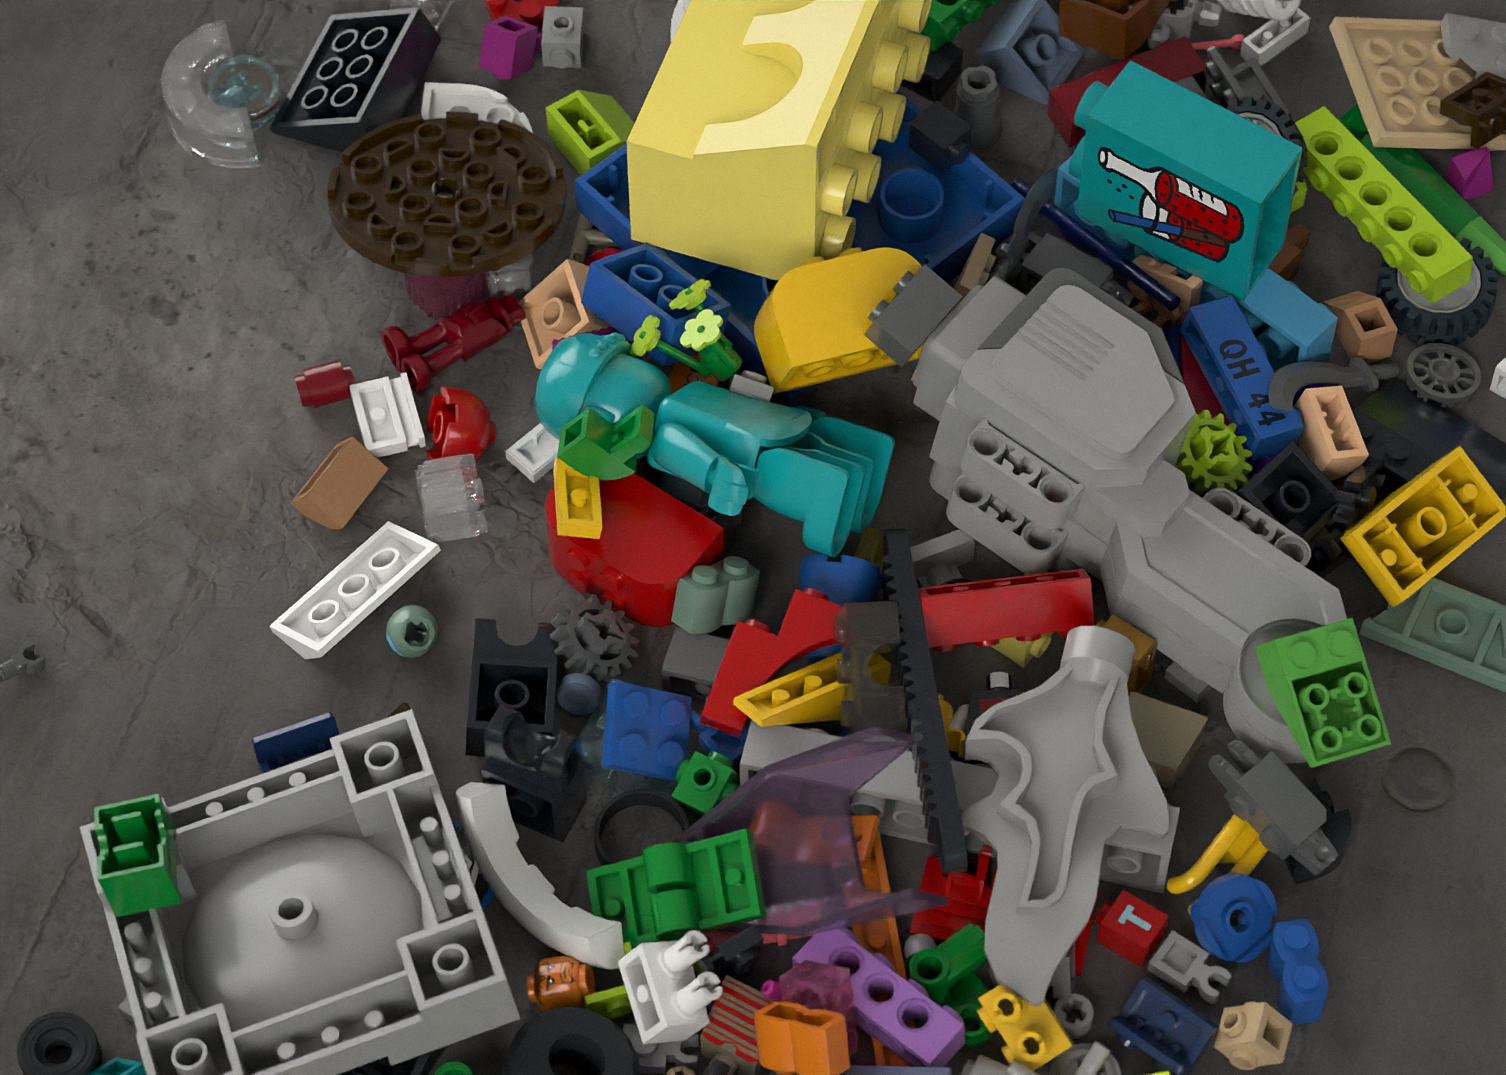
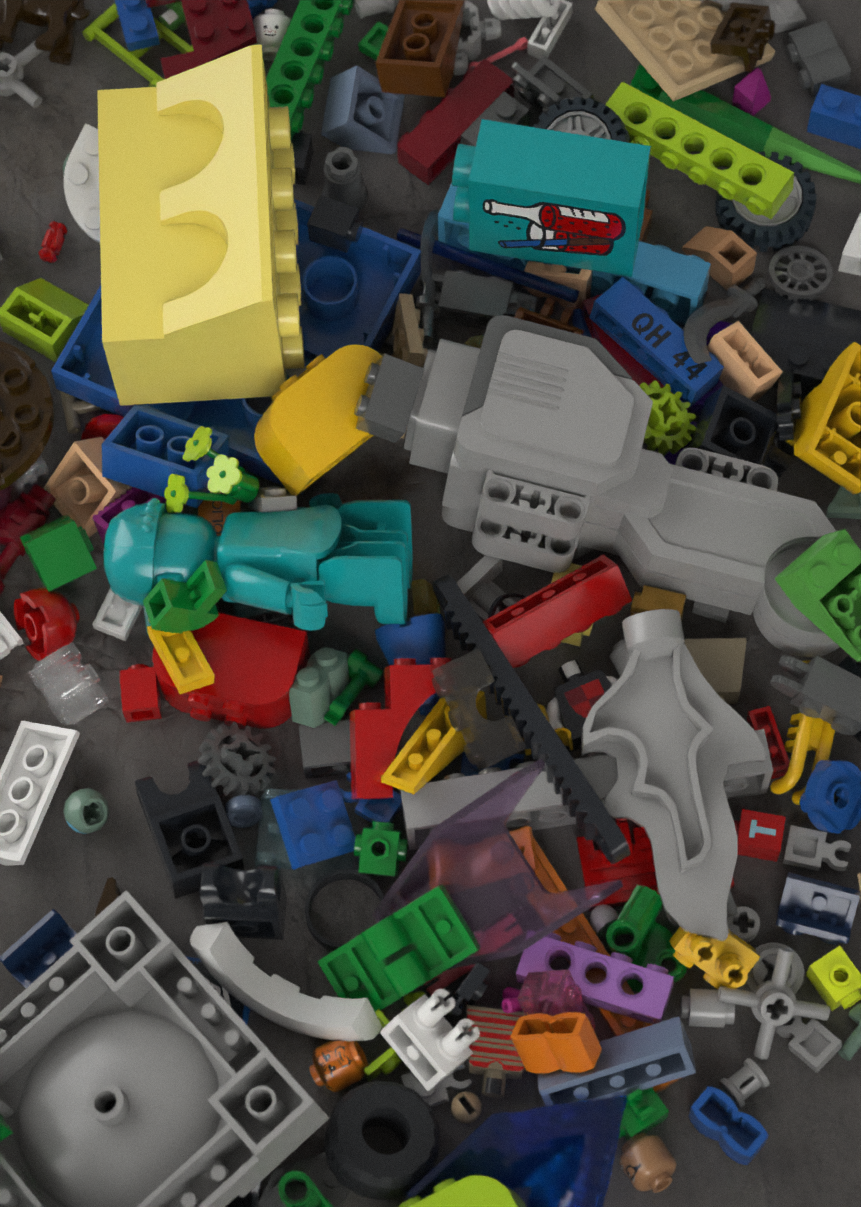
camera: 20 degrees left, 10 degrees up
(501, 362) = (59, 552): none -> green piece
(522, 538) = (140, 693): none -> red brick
(640, 67) = (52, 242): none -> red piece
(768, 603) = (362, 673): none -> green brick
(1188, 834) = (764, 719): none -> red piece

